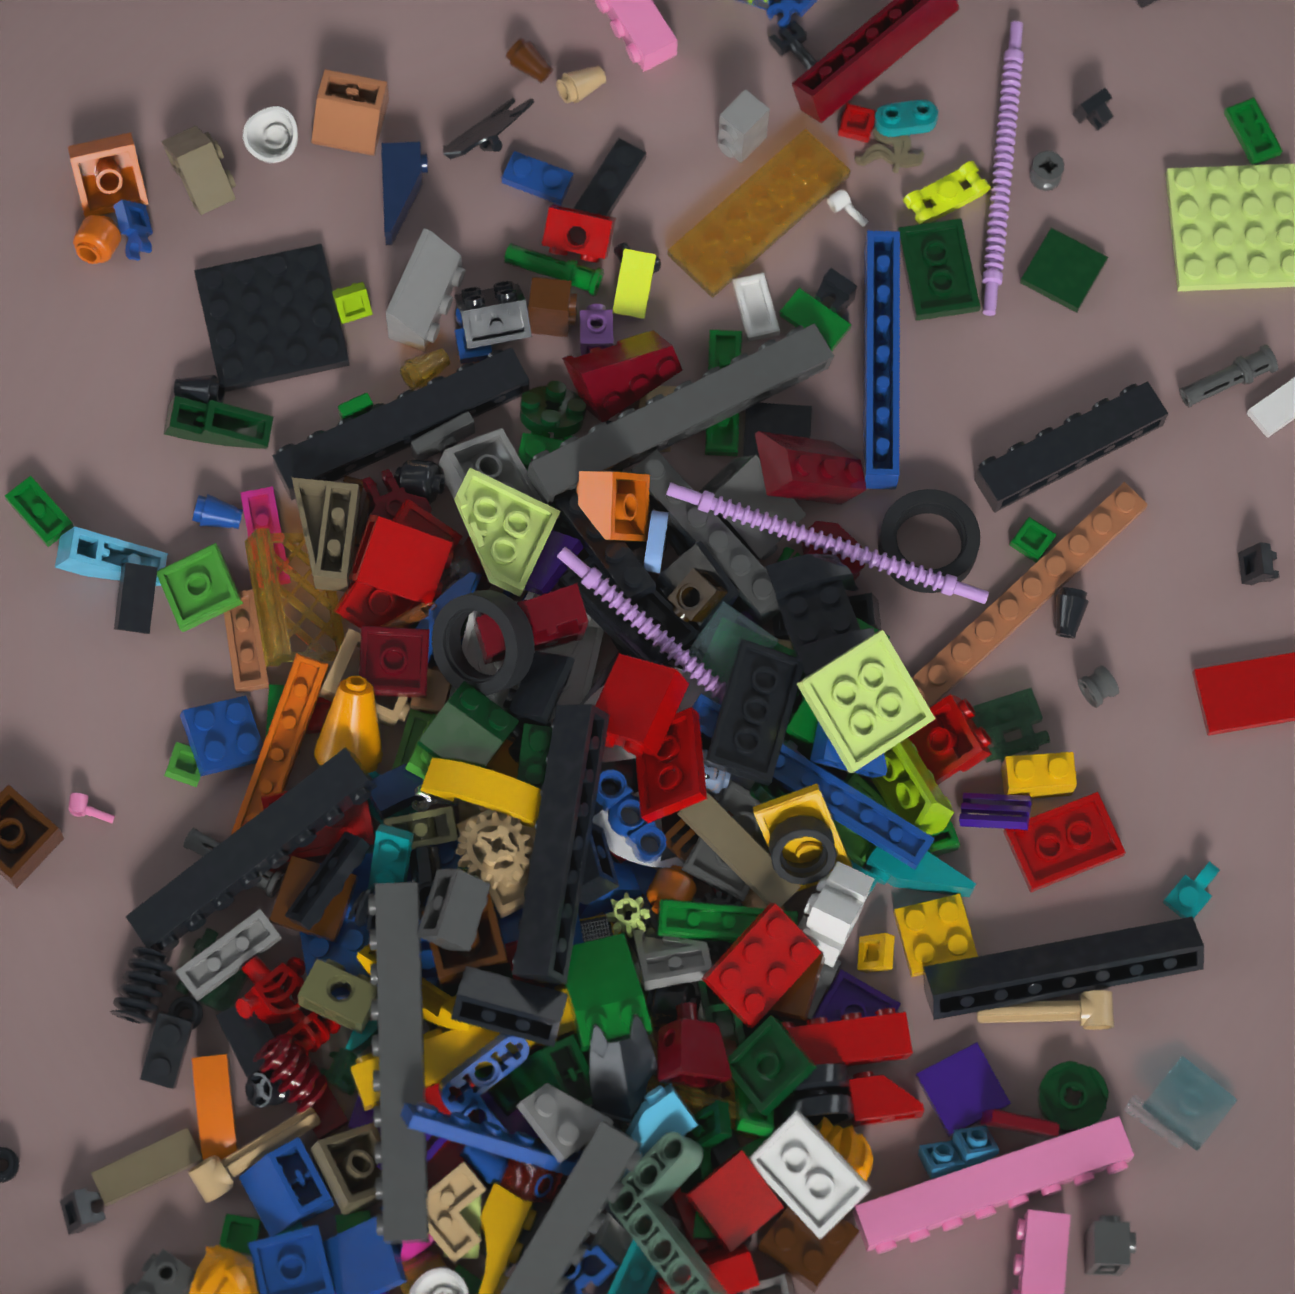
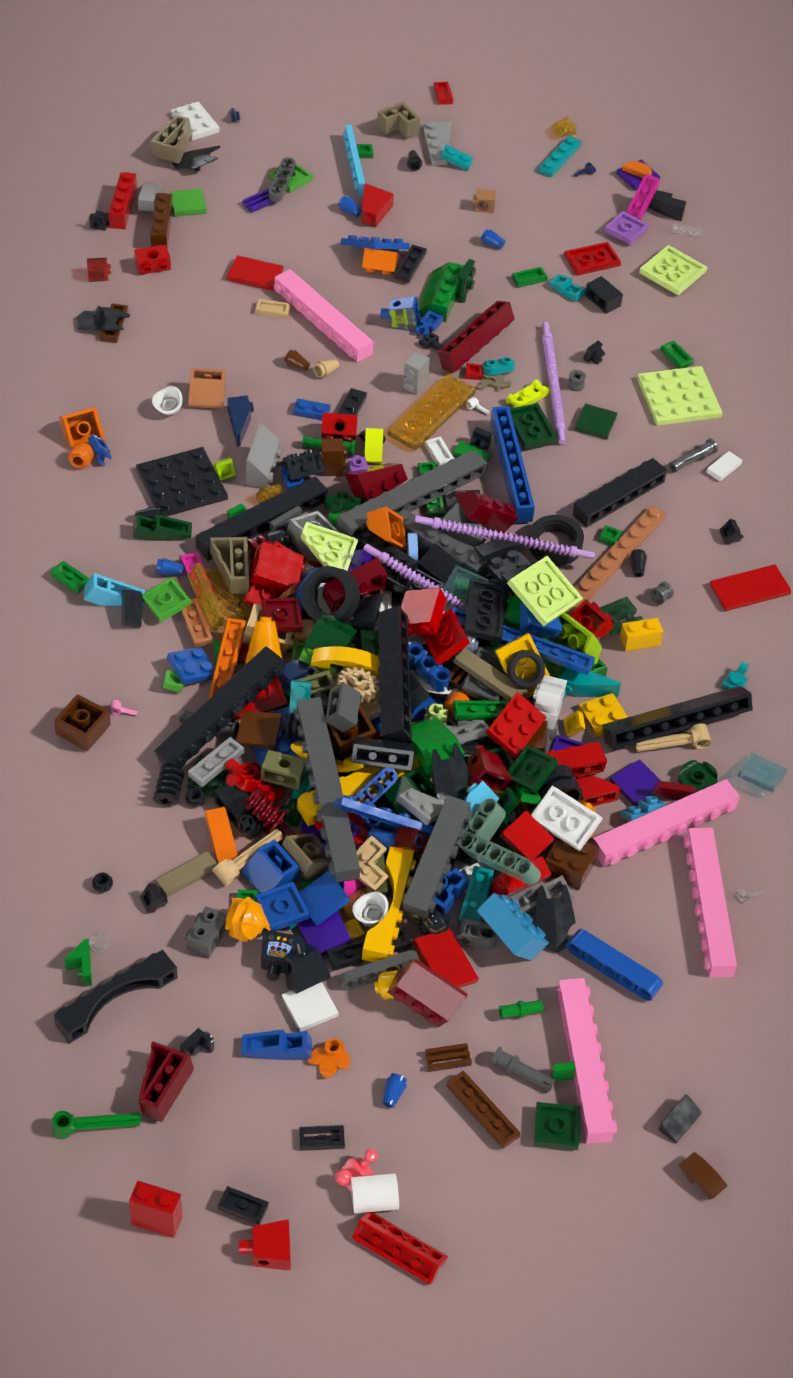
camera: 10 degrees left, 20 degrees down
(167, 1050) = (188, 814): black plate -> none
(198, 164) = (132, 417): dark tan brick -> none
(327, 880) = (266, 715): black plate -> none
(486, 131) = (287, 395): black shield -> none
(710, 592) = (438, 558): dark brown brick -> none
(996, 806) = (622, 652): dark purple tile -> none
(1065, 842) = (662, 663): red plate -> none
(1108, 1246) = (737, 840): dark grey brick -> none

